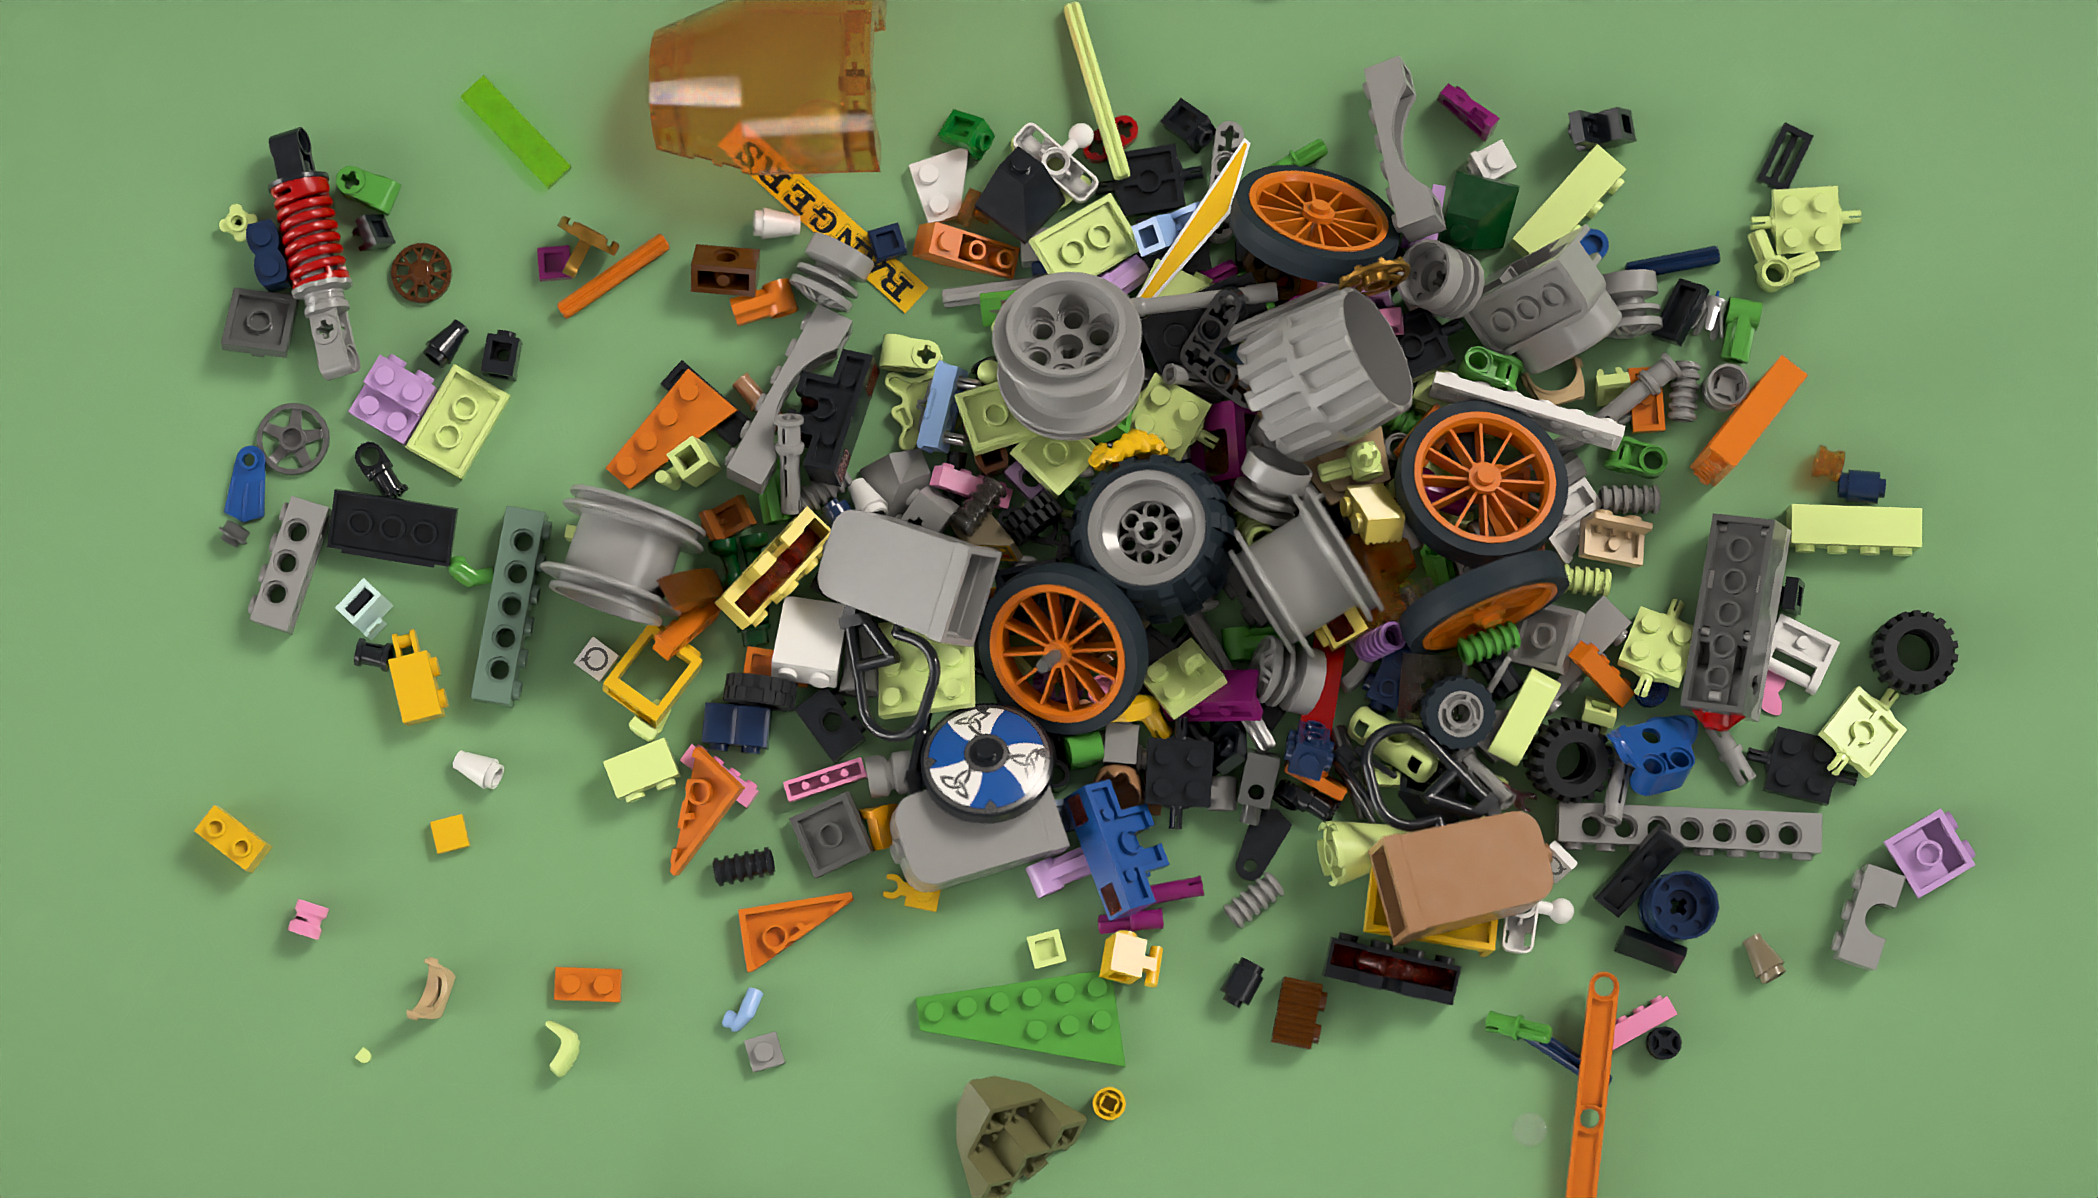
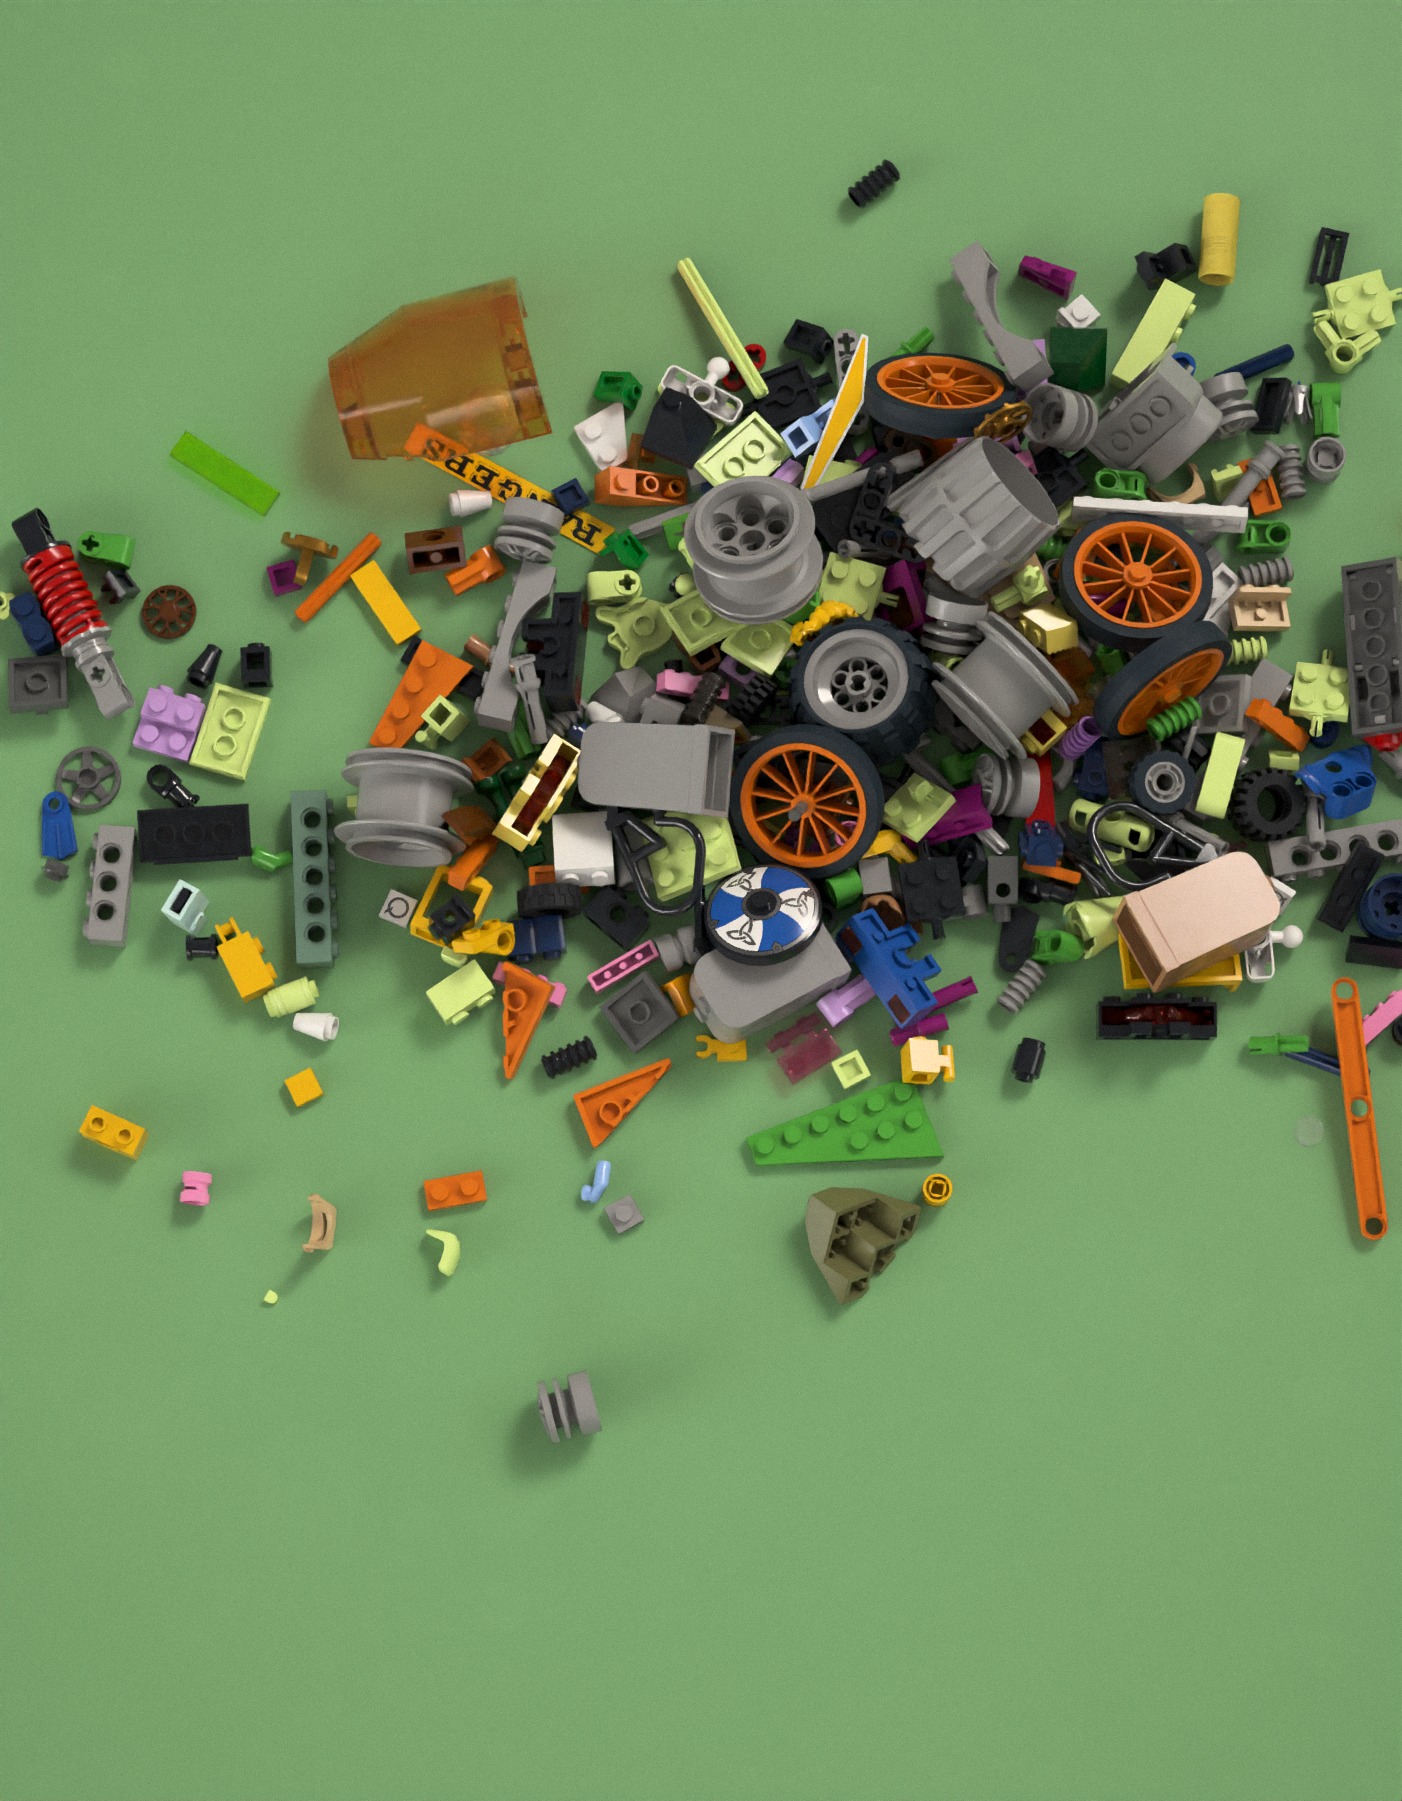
camera: 10 degrees left, 5 degrees down
(457, 732) = (291, 997): none -> yellowish green head
(642, 703) = (451, 930): none -> black brick
(658, 316) = (385, 603): none -> yellow tile
(688, 717) = (491, 938): none -> yellow plate
(934, 315) = (626, 547): none -> green bracket
(941, 411) = (652, 626): light blue piece -> none
(1004, 923) = (808, 1056): none -> clear pink plate
(1298, 1013) = (1083, 1075): reddish brown brick -> none
(1302, 866) = (1057, 947): none -> bright green piece
(1669, 103) = (1221, 234): none -> light yellow piece
(1748, 421) = (1352, 480): orange window -> none

